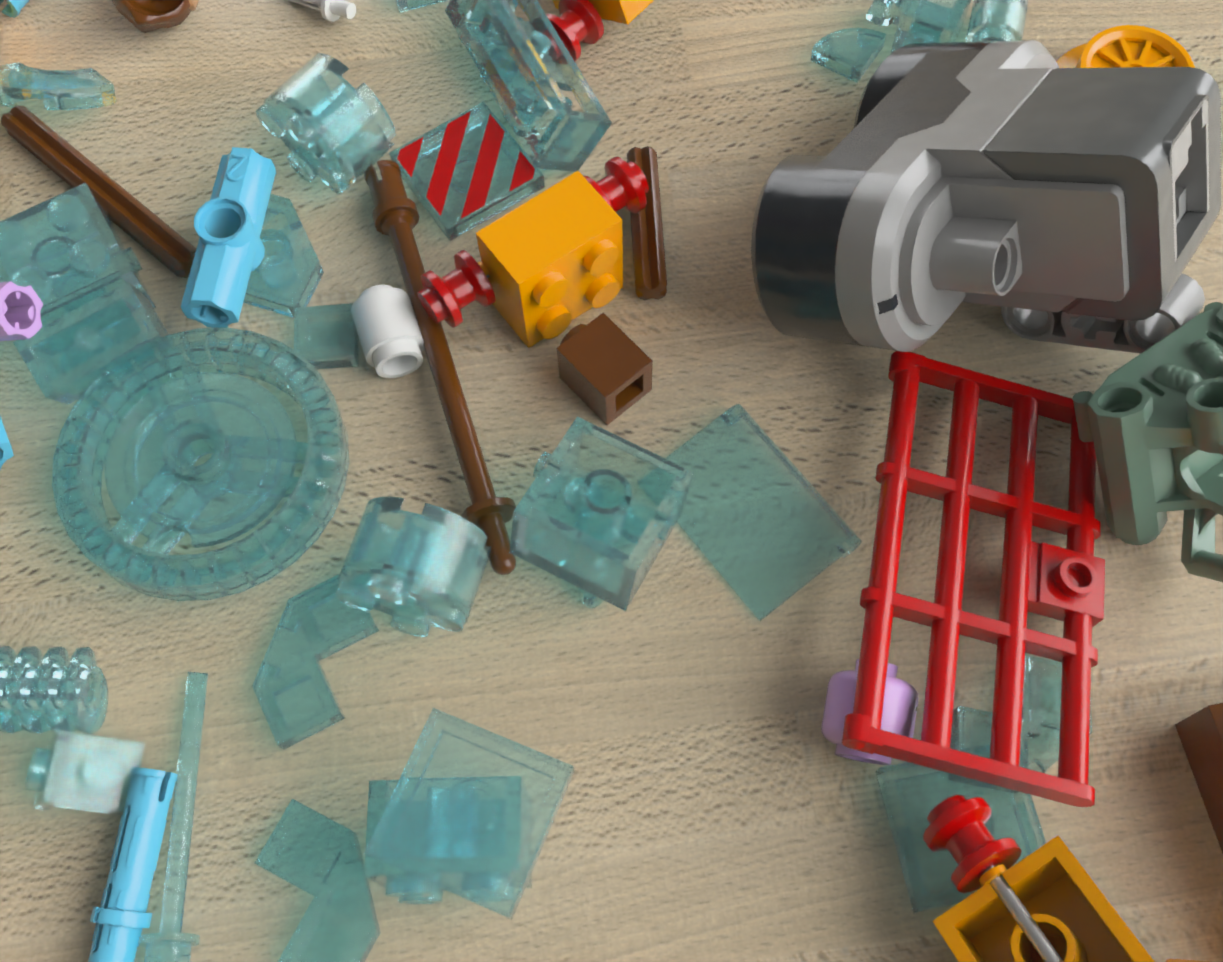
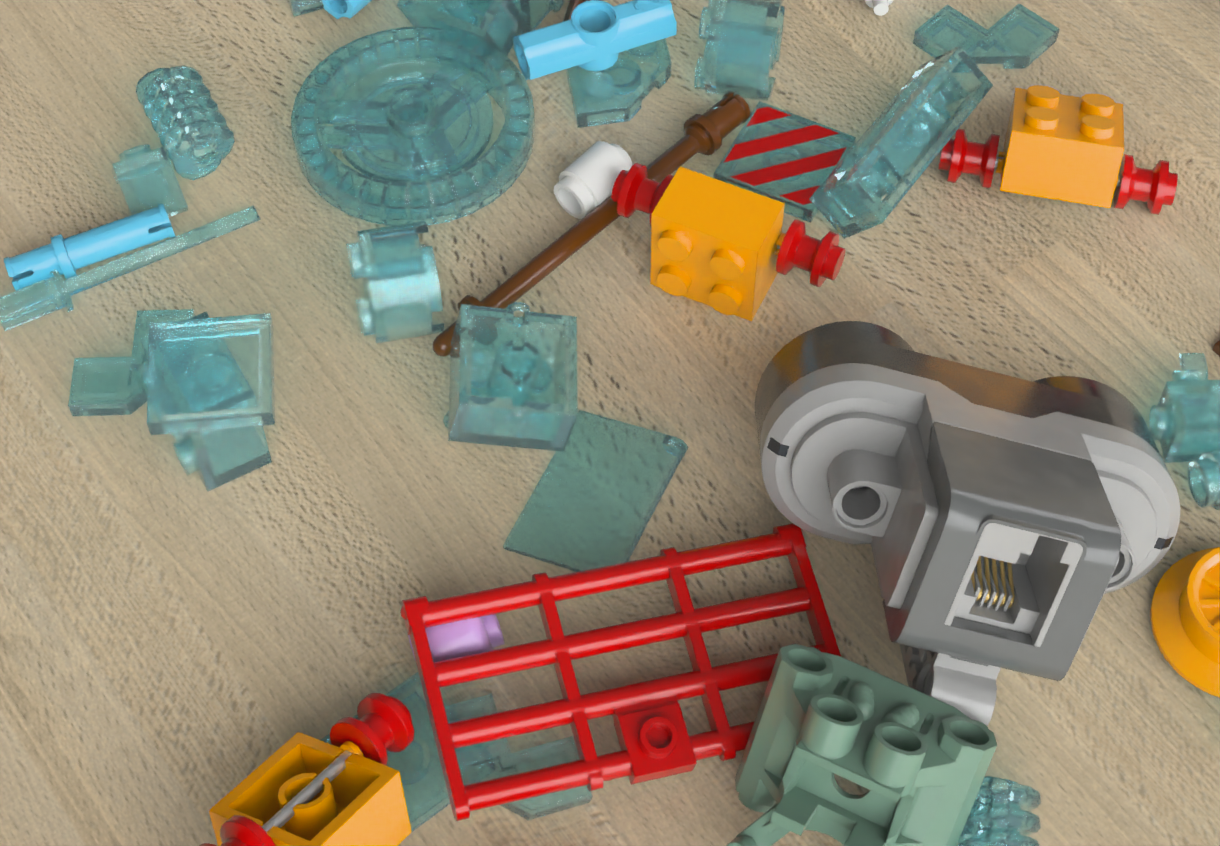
camera: 60 degrees right, 10 degrees down
(291, 678) = (283, 266): clear light blue tile -> none
(326, 336) = (563, 143): clear light blue tile -> none
(604, 367) = (652, 333): reddish brown brick -> none
(648, 231) = (819, 304): reddish brown axle -> none
(848, 51) = (1124, 373): clear light blue tile -> none

